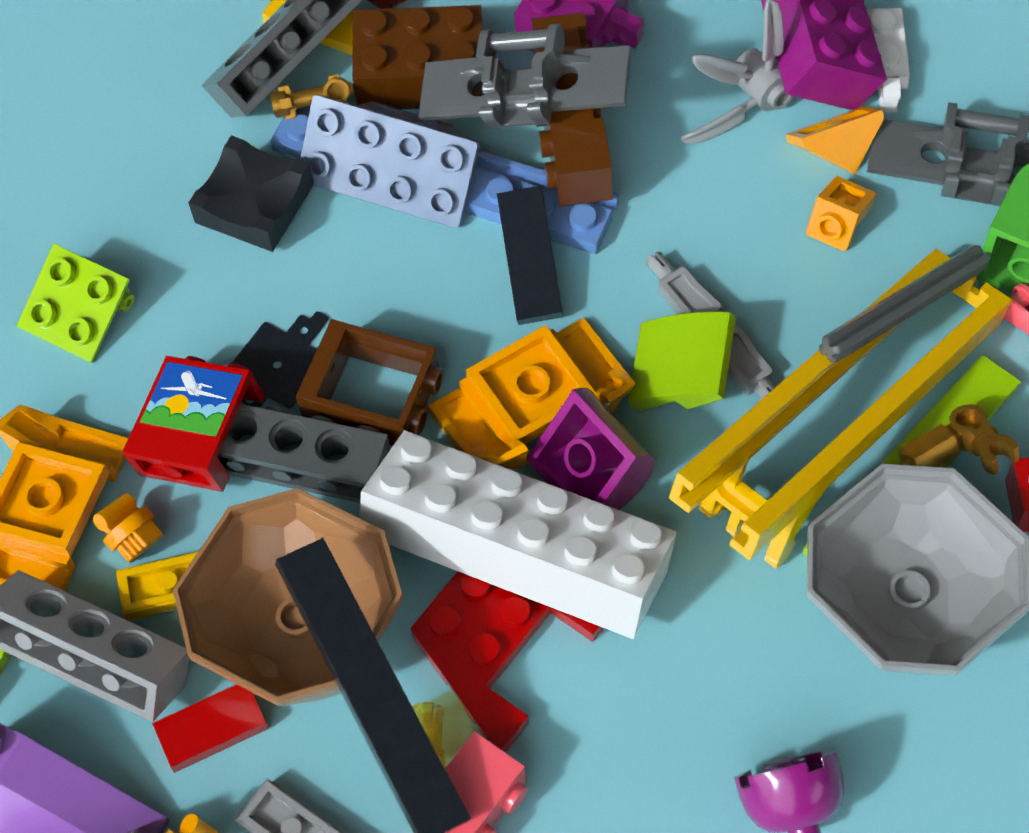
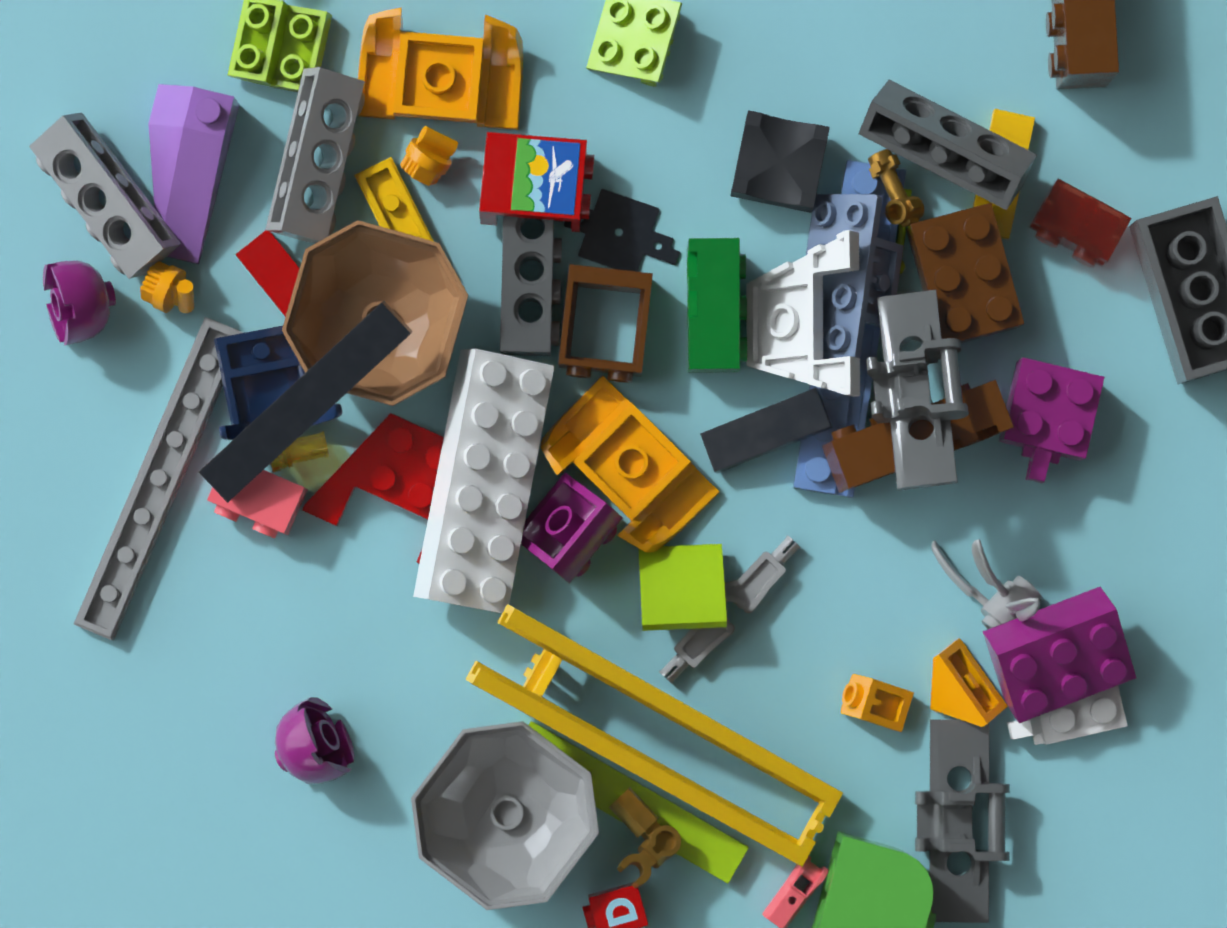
camera: 70 degrees right, 25 degrees up
(323, 762) = (255, 373): none -> dark blue piece
(379, 273) = (715, 305): none -> green wedge
(417, 208) = (788, 318): none -> white wing
(903, 303) = (758, 773): dark grey axle -> none

